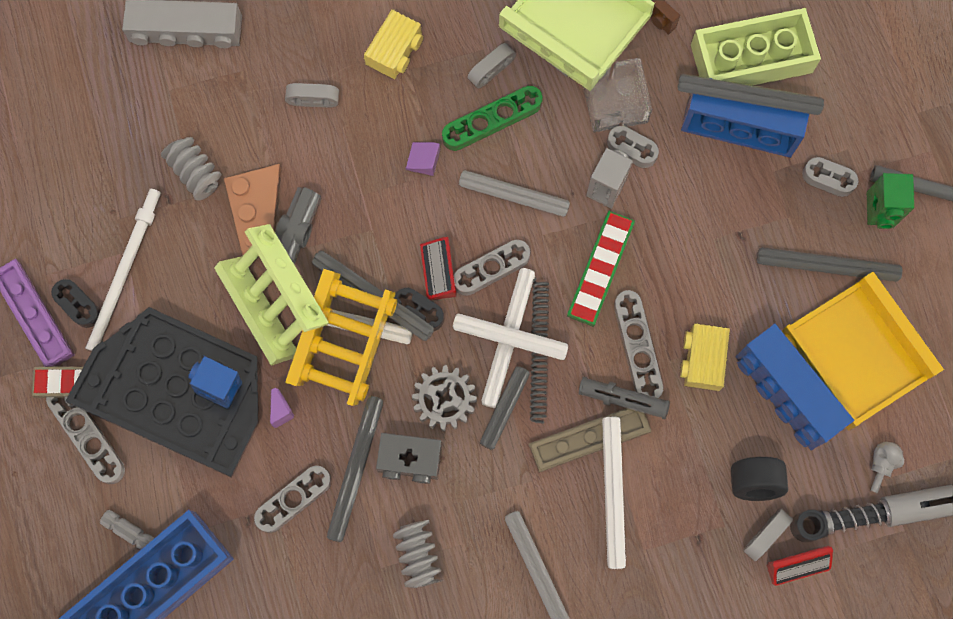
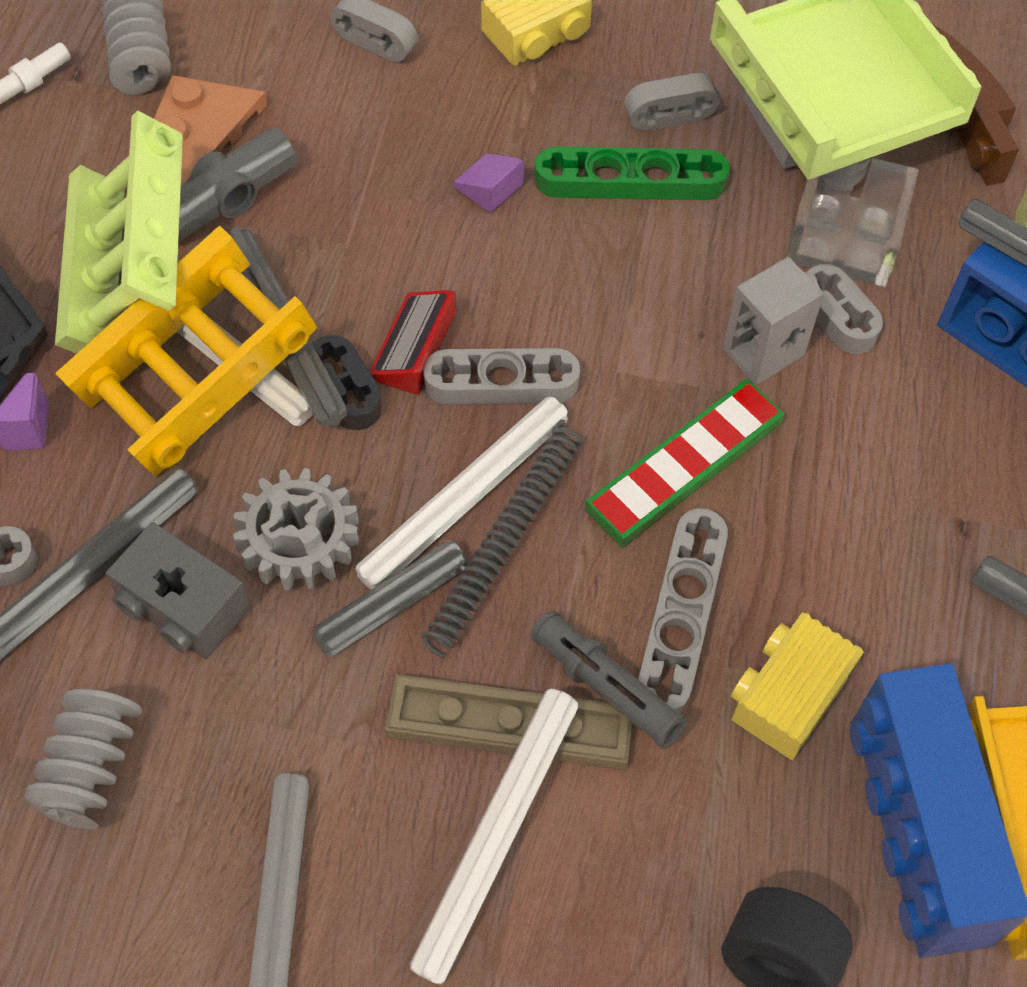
camera: 25 degrees right, 15 degrees down
(510, 336) = (466, 483): white axle -> none
(514, 193) = (605, 289): light grey axle -> none

